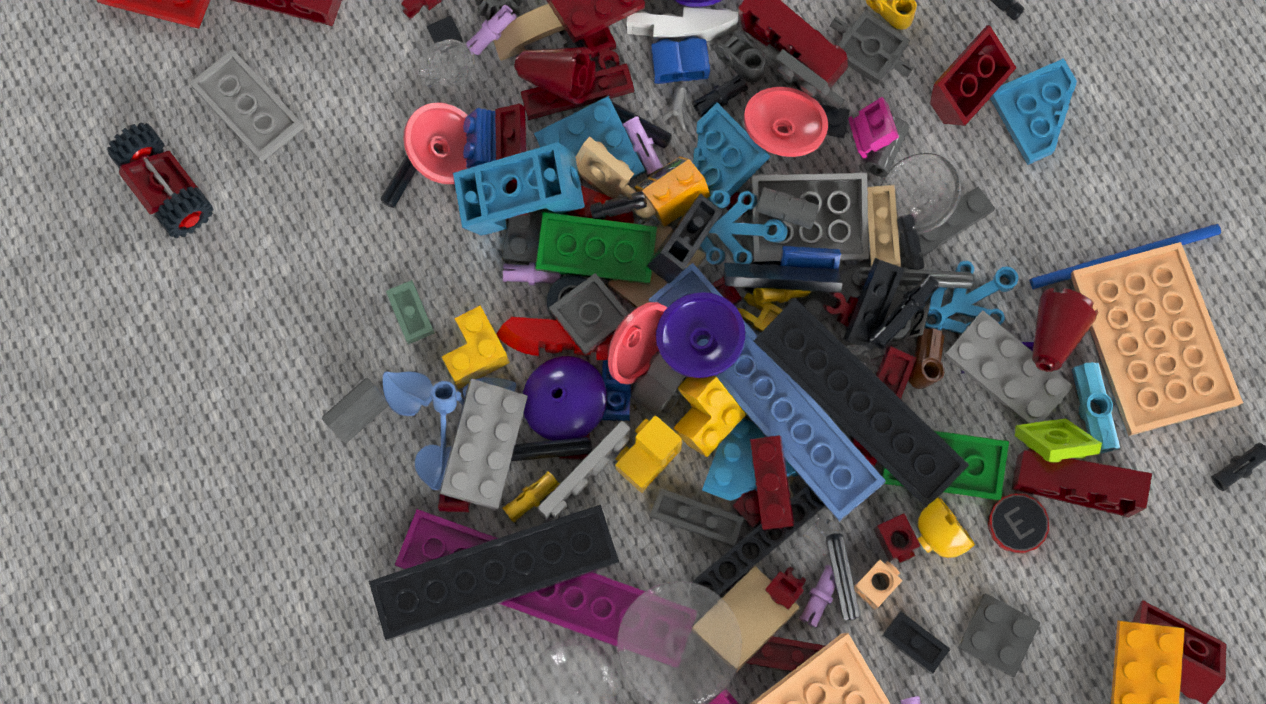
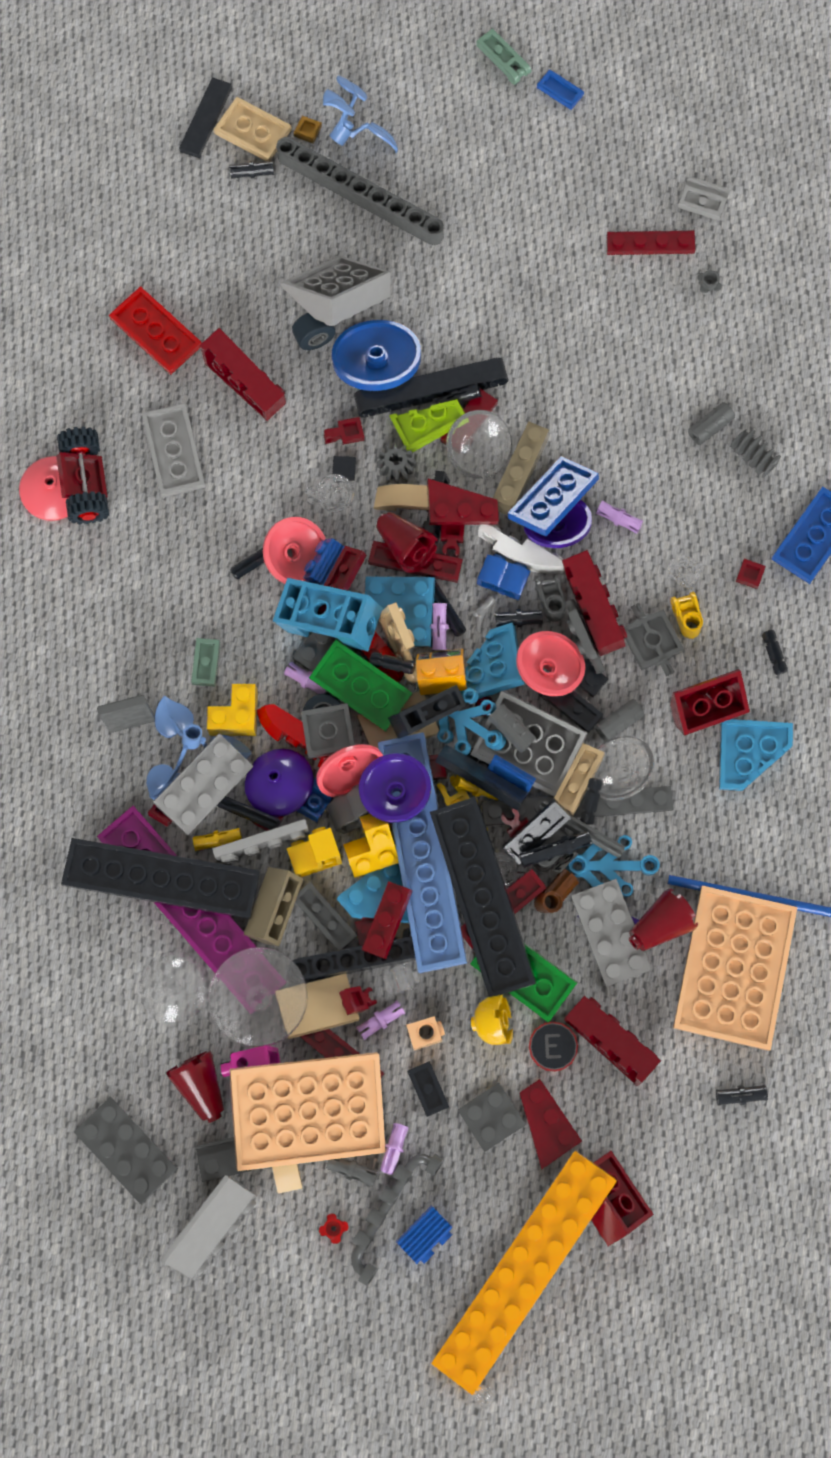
camera: 30 degrees right, 0 degrees up
(127, 229) = (39, 498): none -> coral dish
(491, 30) = (377, 483): lavender pin -> none
(636, 535) = (273, 906): none -> dark tan brick
(831, 157) = (576, 709): none -> black plate
(842, 576) = (401, 1014): axle -> none
(873, 127) = (614, 701): dark pink plate -> none
(901, 526) = (457, 998): dark red brick -> none
(1057, 440) = (612, 1001): lime plate -> none
(1064, 610) = (548, 1125): none -> dark red wing
(1091, 389) = (654, 1009): medium azure piece -> none

